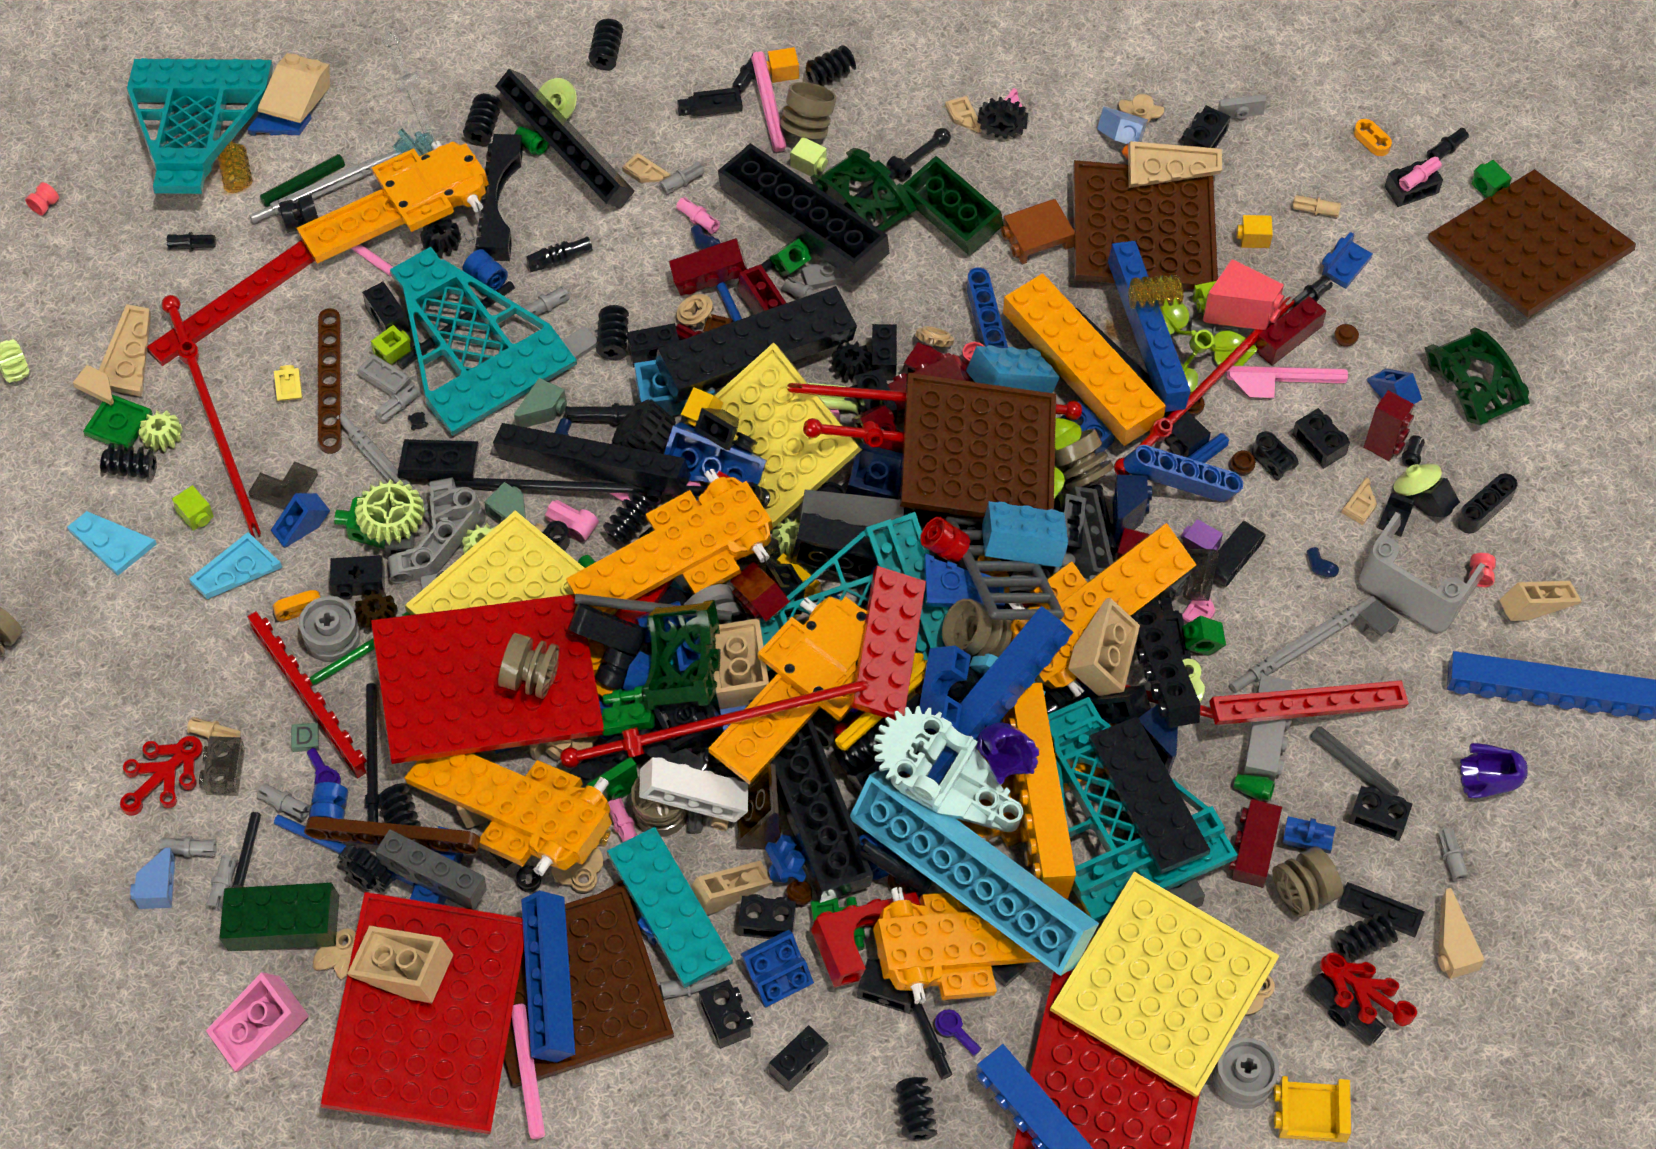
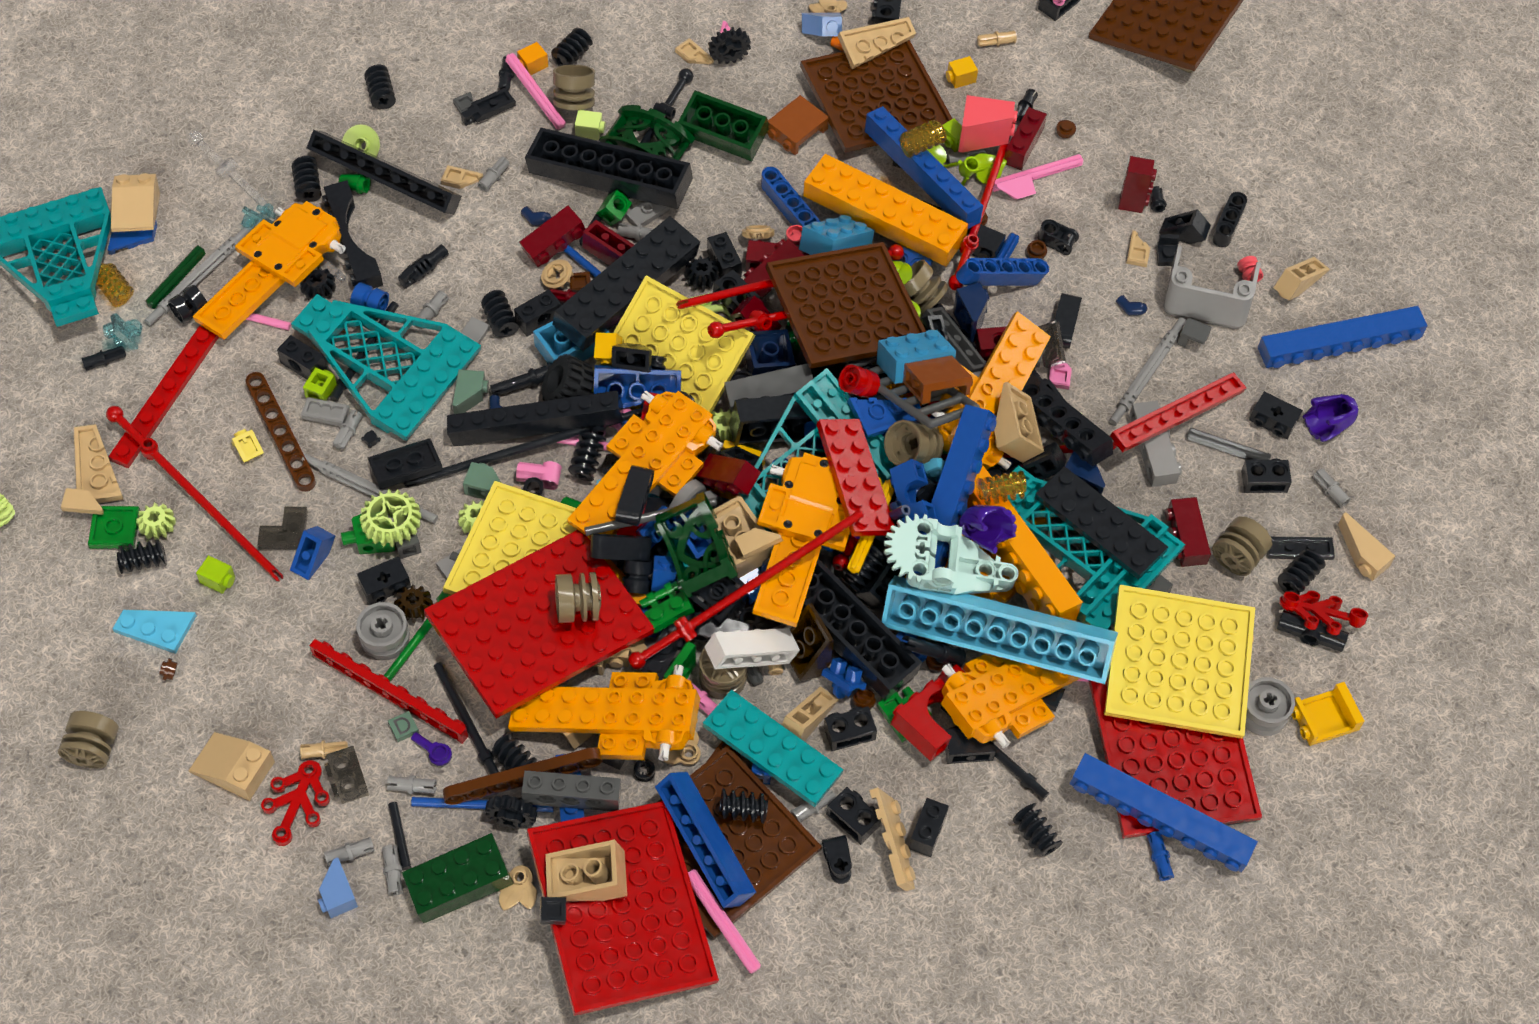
camera: 25 degrees left, 0 degrees up
(100, 589) = (168, 669): none -> reddish brown plate
(118, 713) = (233, 764): none -> tan slope
(220, 220) = (122, 332): none -> clear light blue hips
(234, 567) = (275, 610): medium azure wing -> none
(257, 1021) = (478, 970): bright pink slope -> none
(292, 606) = (343, 623): light orange beam -> none
(329, 800) = (451, 769): blue wheel -> none
(346, 988) = (553, 910): none -> black plate
(452, 512) = (441, 502): light grey connector -> none
(606, 958) = (743, 805): none -> black piece
(643, 578) = (634, 495): none -> black beam
(685, 1050) = (838, 855): none -> black piece
(687, 88) = (463, 102): none -> dark grey tile
(698, 215) = (521, 198): bright pink pin -> none
(748, 675) = (756, 541): none -> tan tile
(754, 1054) = (894, 838): none -> tan wing
(777, 968) = (877, 763): blue slope -> none
(915, 698) = (898, 510): none -> dark blue arm
(950, 1024) = (1028, 756): dark purple plate -> none
(1031, 562) = (935, 374): none -> dark orange panel
(1044, 714) = (1001, 487): none -> clear yellow piece
(1201, 536) = (1038, 314): medium lavender brick -> none
(1204, 635) = (1075, 389): green brick -> none
(1257, 787) = (1166, 490): green cone -> none
(1308, 834) = (1223, 510): blue hips -> none
(1317, 441) = (1086, 211): black brick -> none
(1345, 261) = (1039, 73): blue bracket -> none
(1396, 381) = (1119, 153): blue slope -> none
(1417, 479) = (1172, 218): yellowish green dish -> none
(1426, 747) = (1275, 415): none -> black brick
(1482, 347) = (1158, 125): dark green fence -> none

